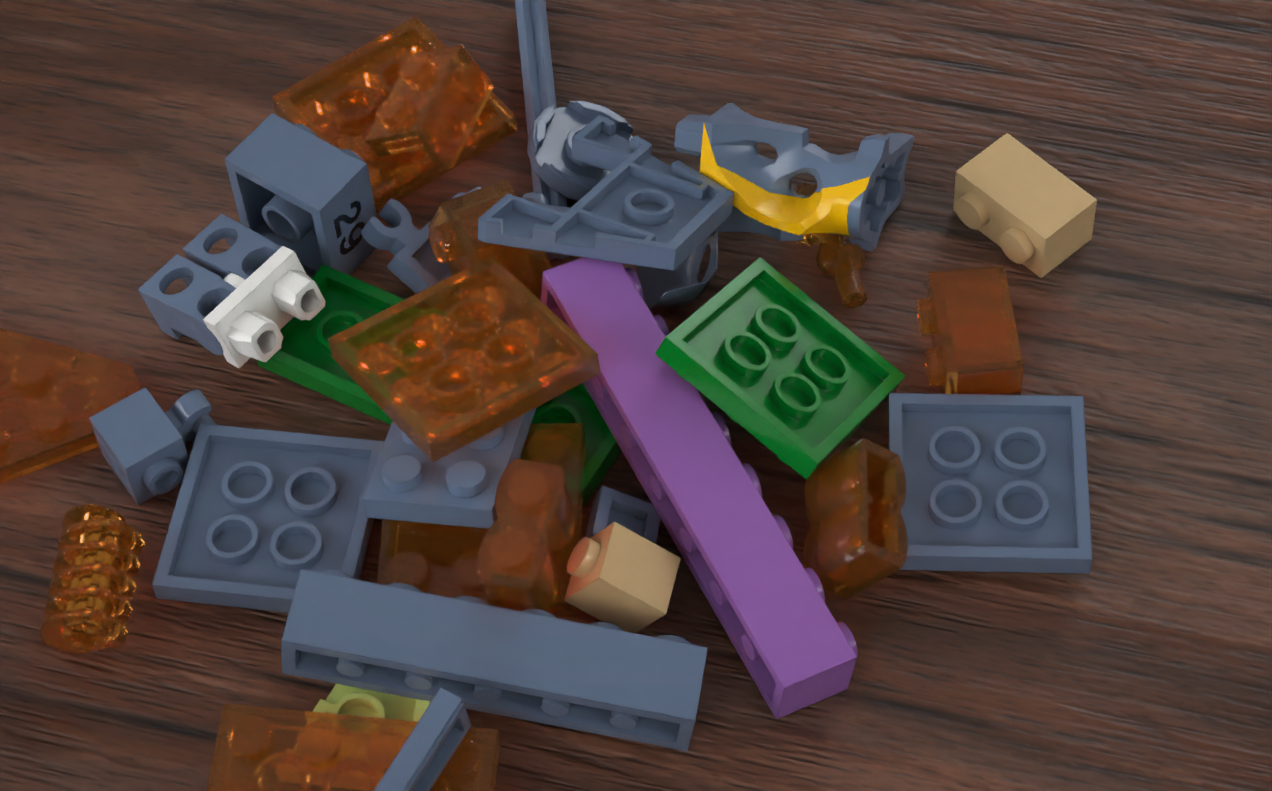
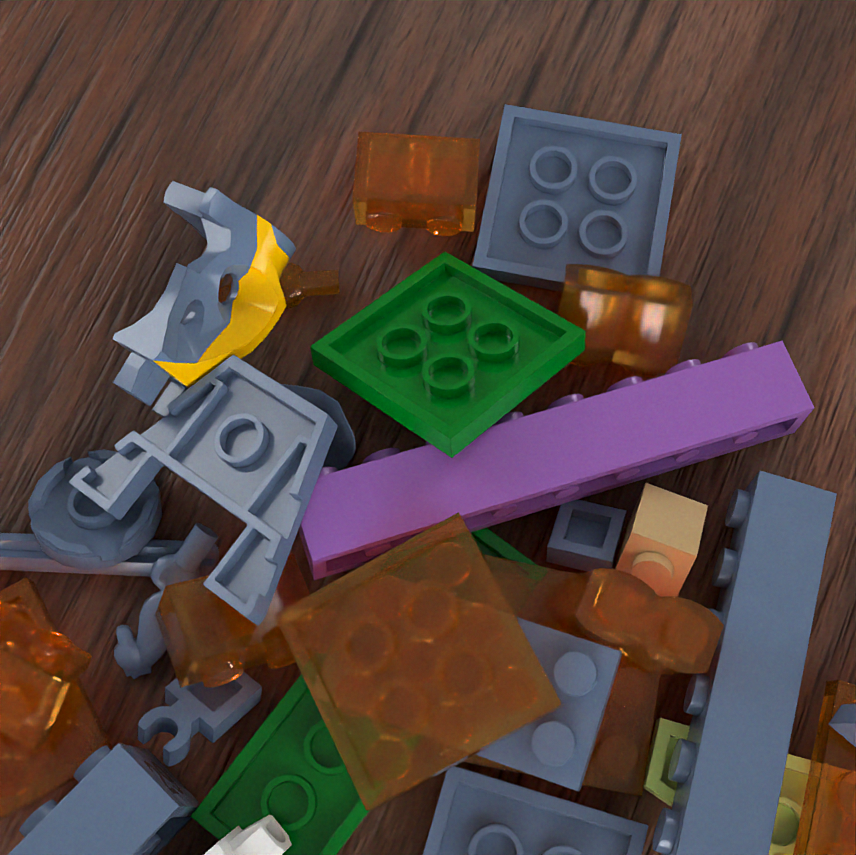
camera: 85 degrees left, 20 degrees up
(1024, 205) = (268, 108): tan brick -> none

